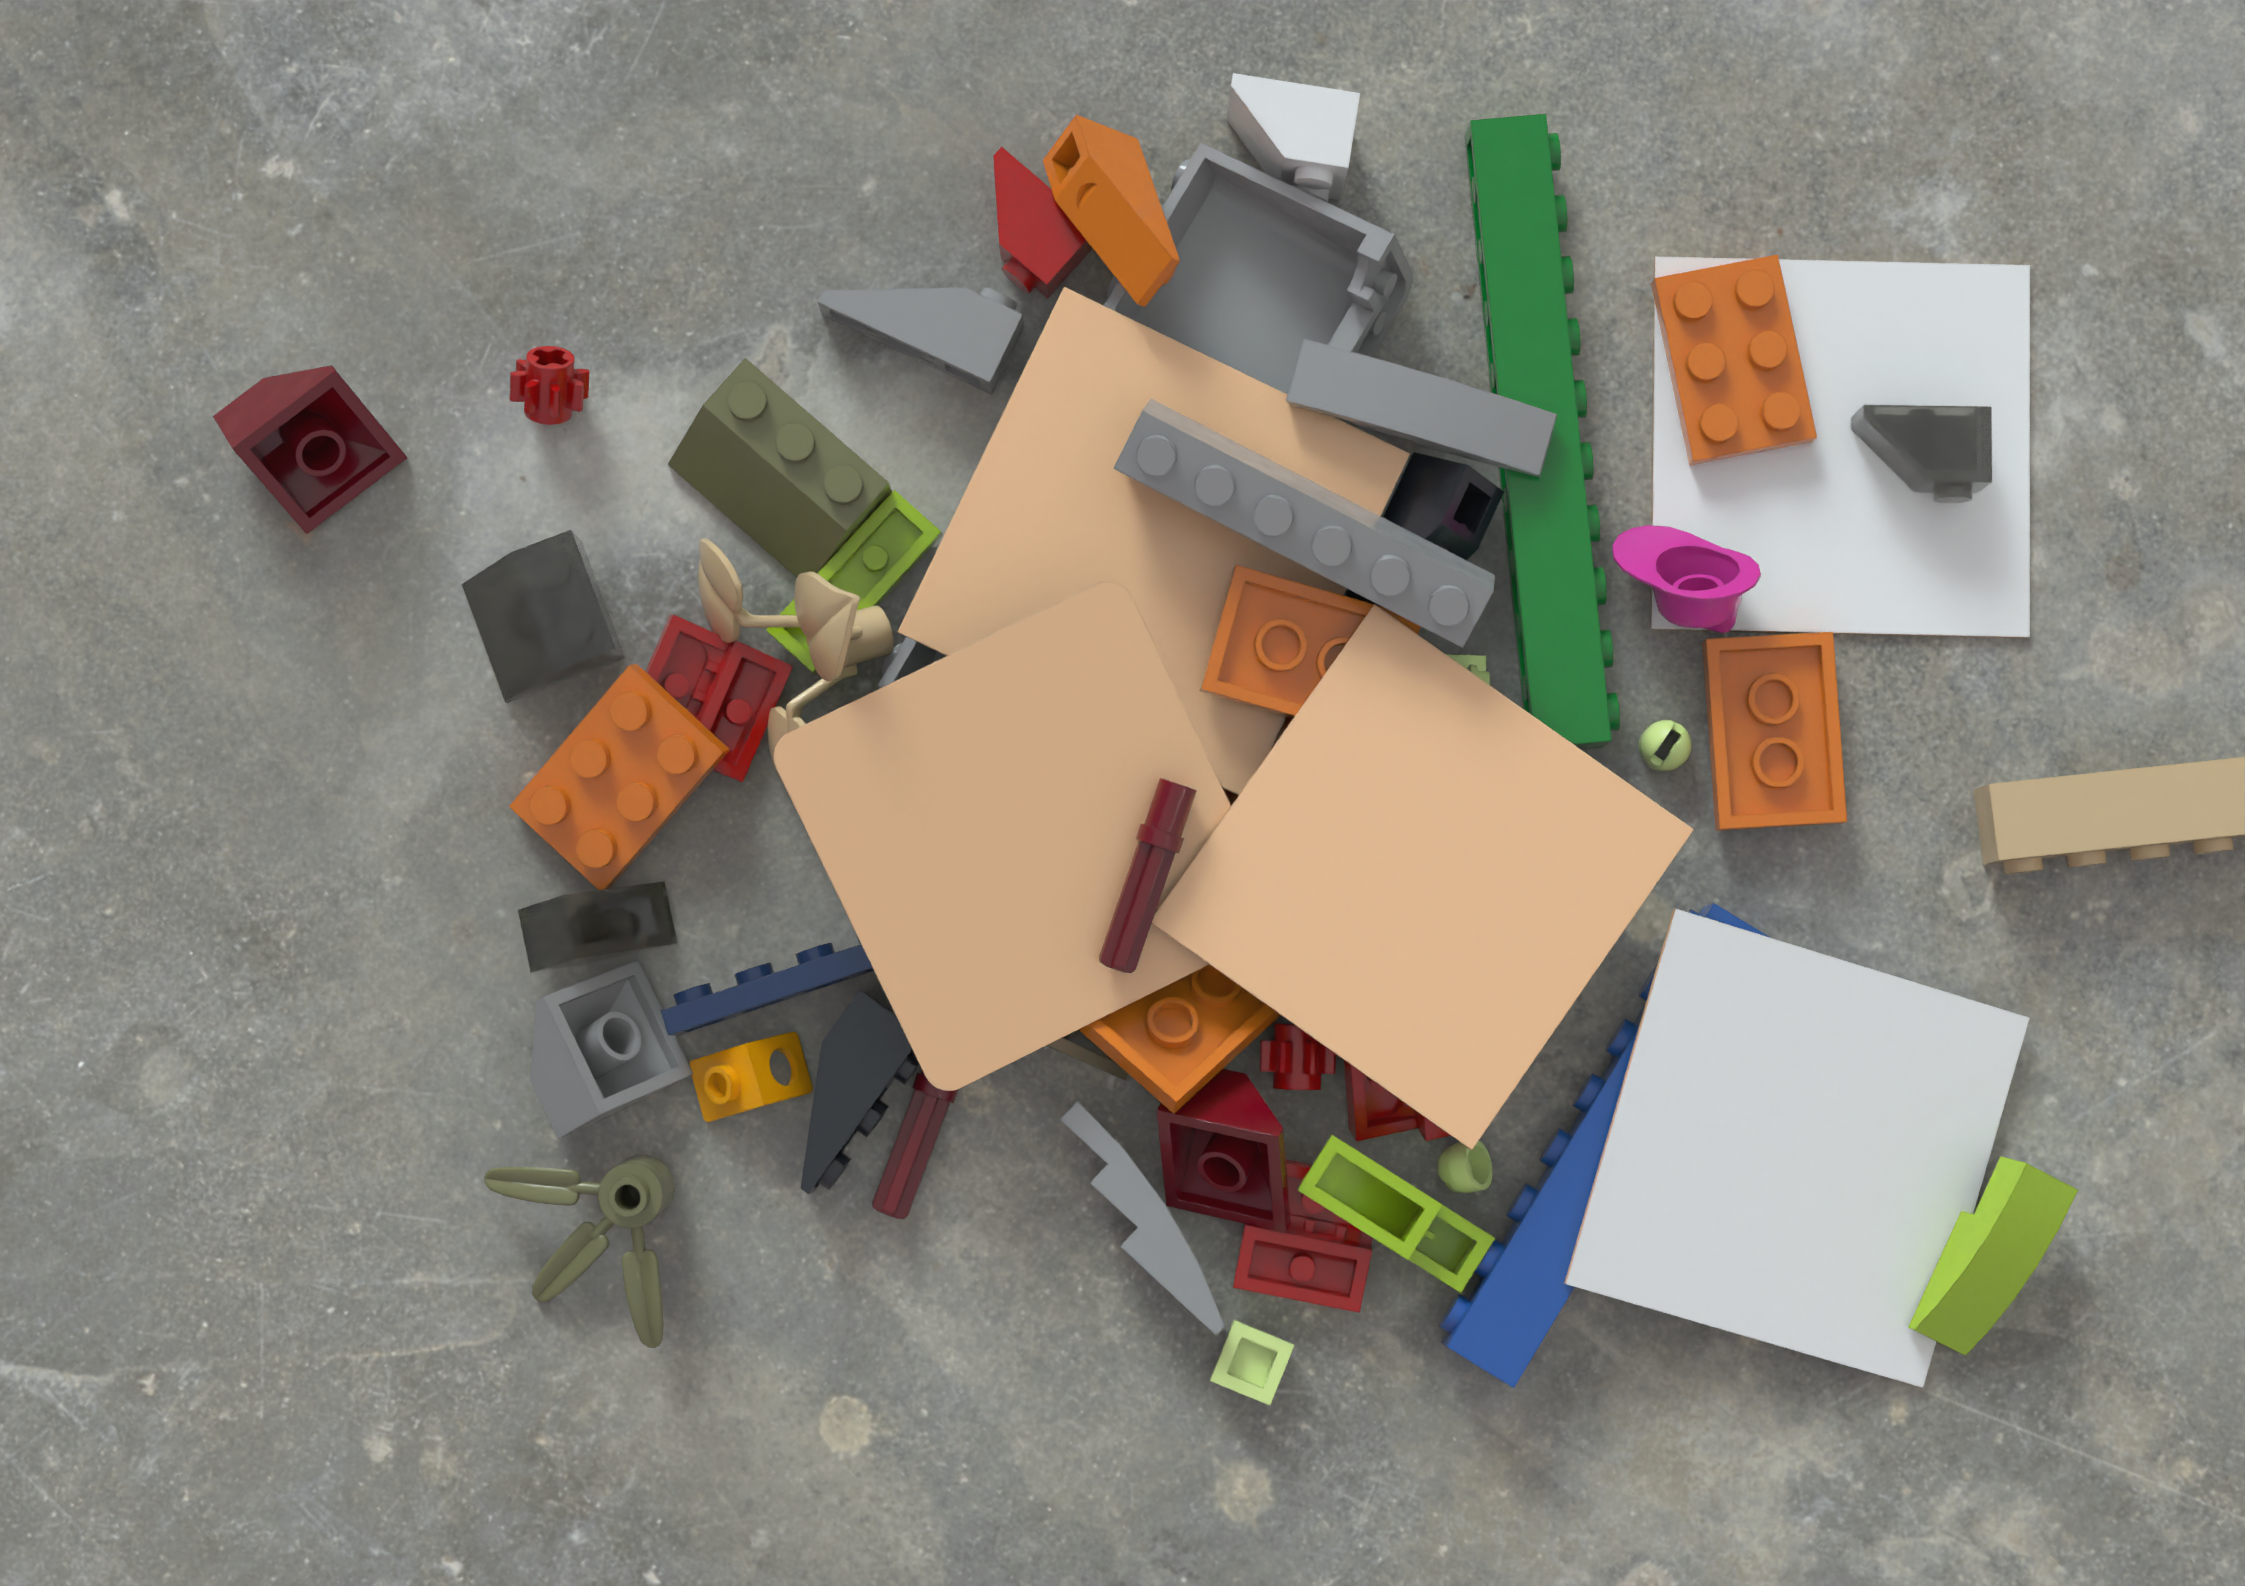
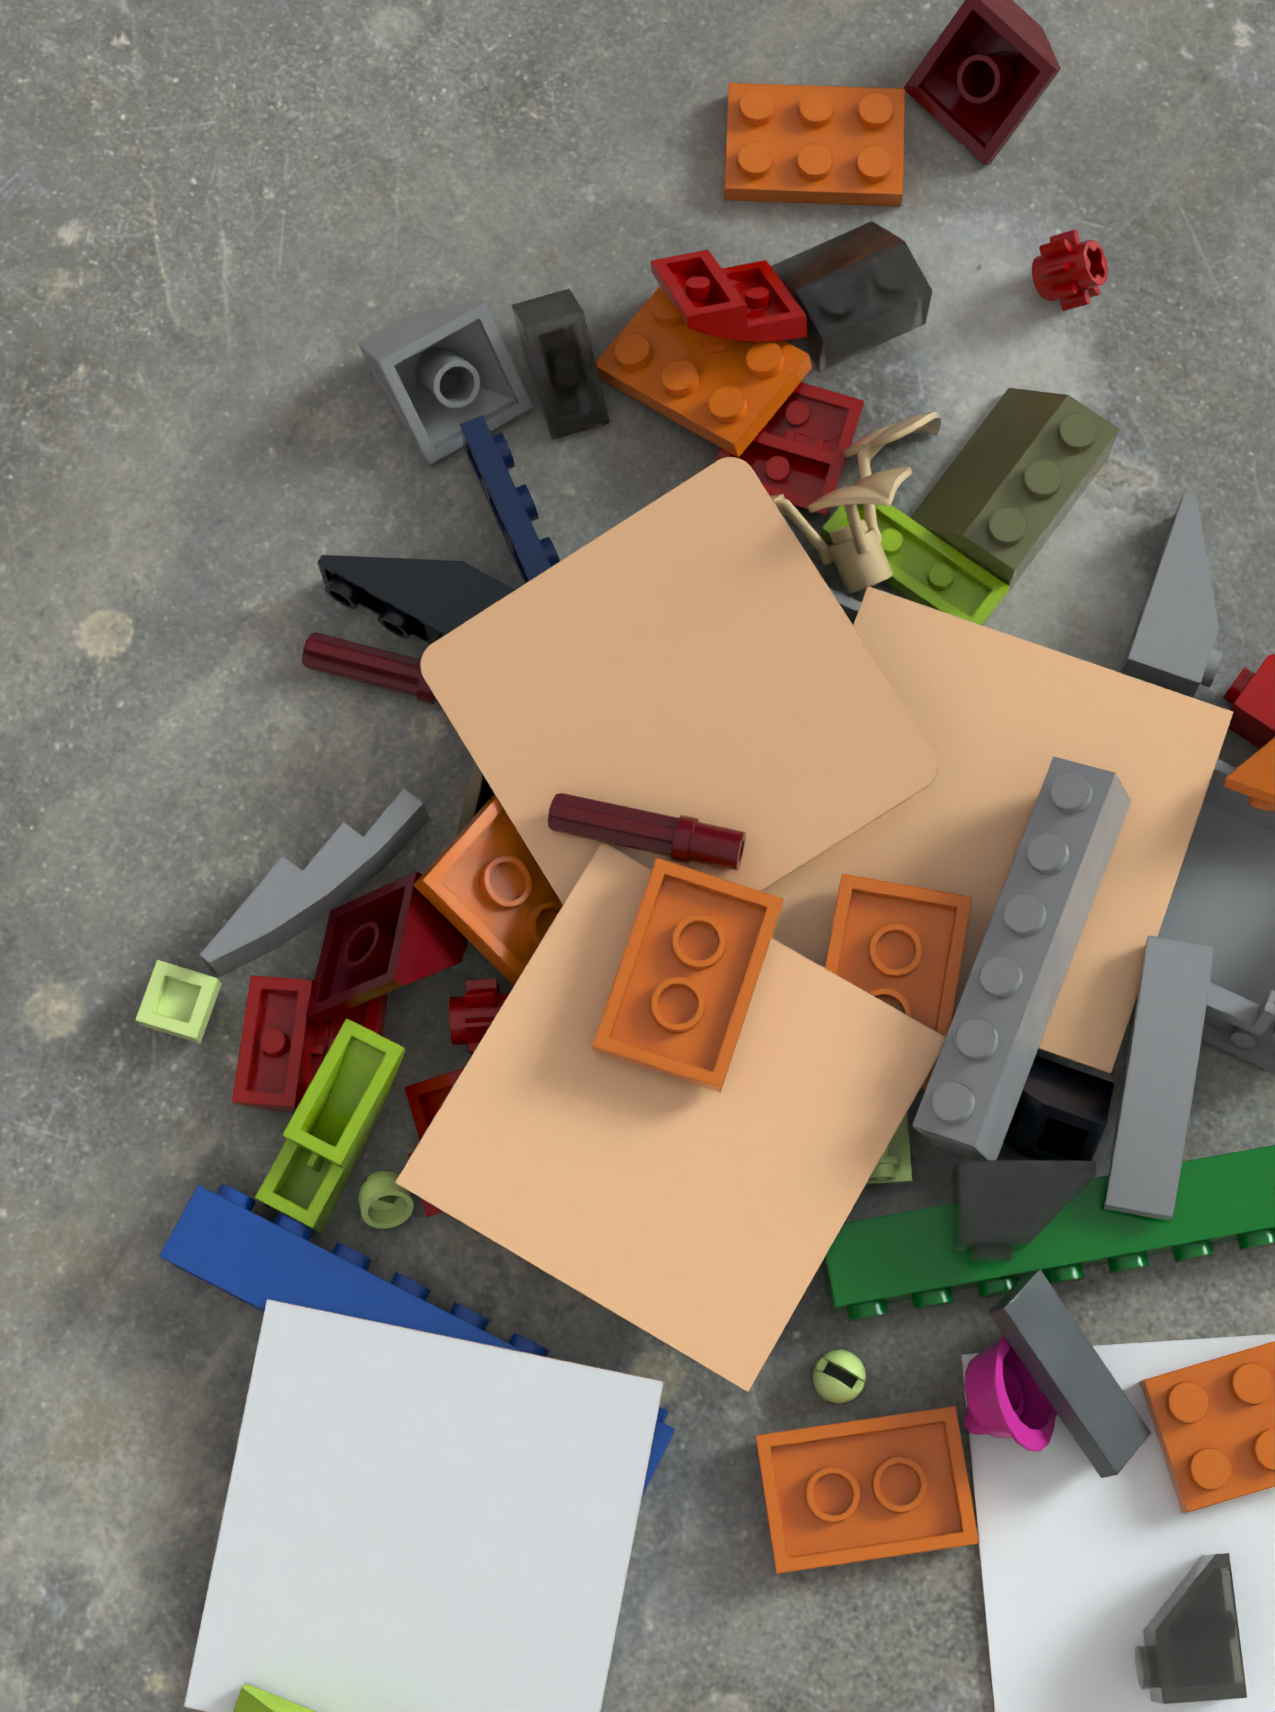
camera: 90 degrees right, 10 degrees down
(364, 635) = (815, 144): none -> orange plate
(554, 741) = (730, 302): none -> red slope
(589, 1241) = (303, 403): olive plant -> none
(742, 1077) = (427, 498): light orange bracket -> none
(1298, 847) = (688, 974): none -> orange plate
(1535, 562) = (1009, 1202): none -> clear smoke slope
(1688, 528) = (1070, 1373): none -> dark grey tile

